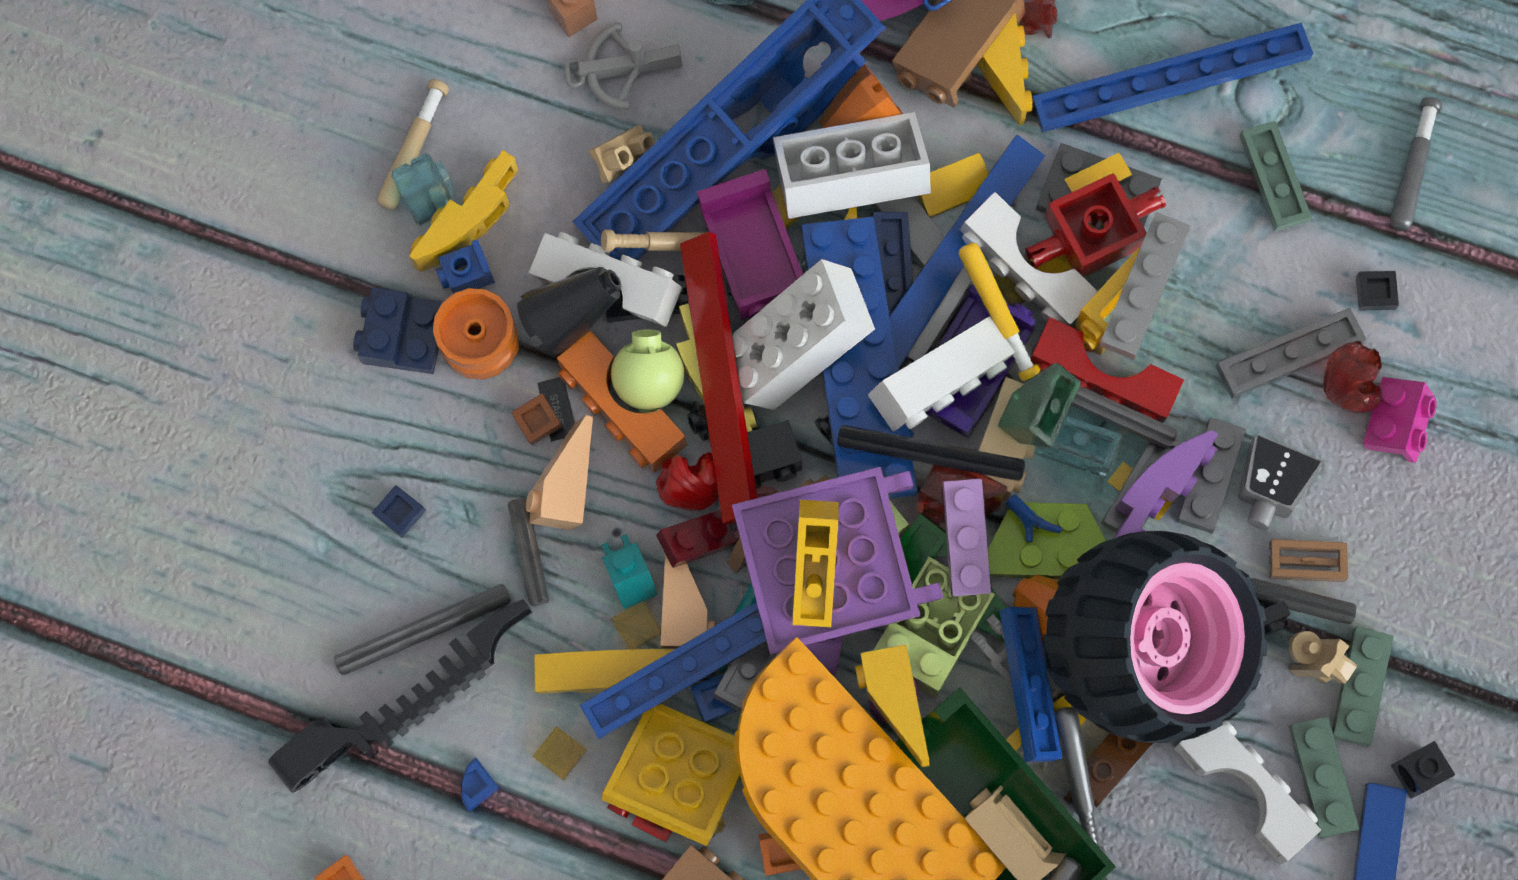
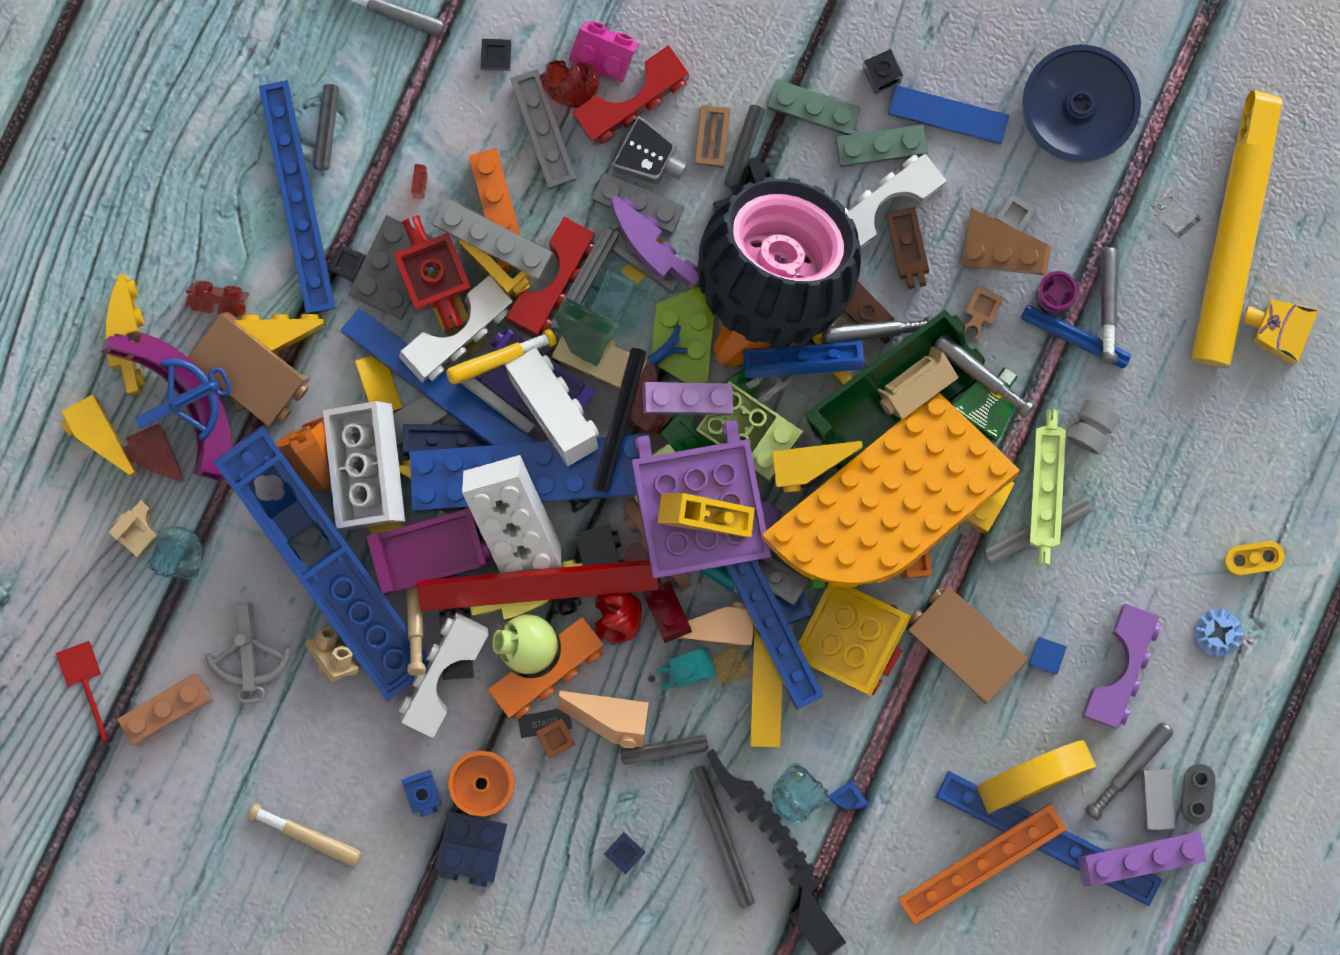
camera: 90 degrees left, 10 degrees up
(423, 187) = (352, 822): clear light blue brick -> none
(460, 225) = (383, 797): yellow slope -> none
(475, 718) = (798, 794): none -> clear light blue hair
(559, 753) = (827, 731): clear yellow tile -> none
(568, 308) = (470, 705): black cone -> none
(1099, 138) = (346, 262): none -> black tile
(1112, 164) = (382, 266): yellow sticker -> none
(1195, 818) = (908, 246): none -> reddish brown hinge
(1204, 295) = (494, 193): none -> orange arch
(1207, 212) = (419, 181): none -> clear red tile
(1261, 104) = (326, 127): none -> flat silver axle
(1275, 176) = (391, 123): sand green plate -> none
(1320, 658) = (794, 137): tan hips -> none
(1375, 490) = (601, 118): none -> red arch

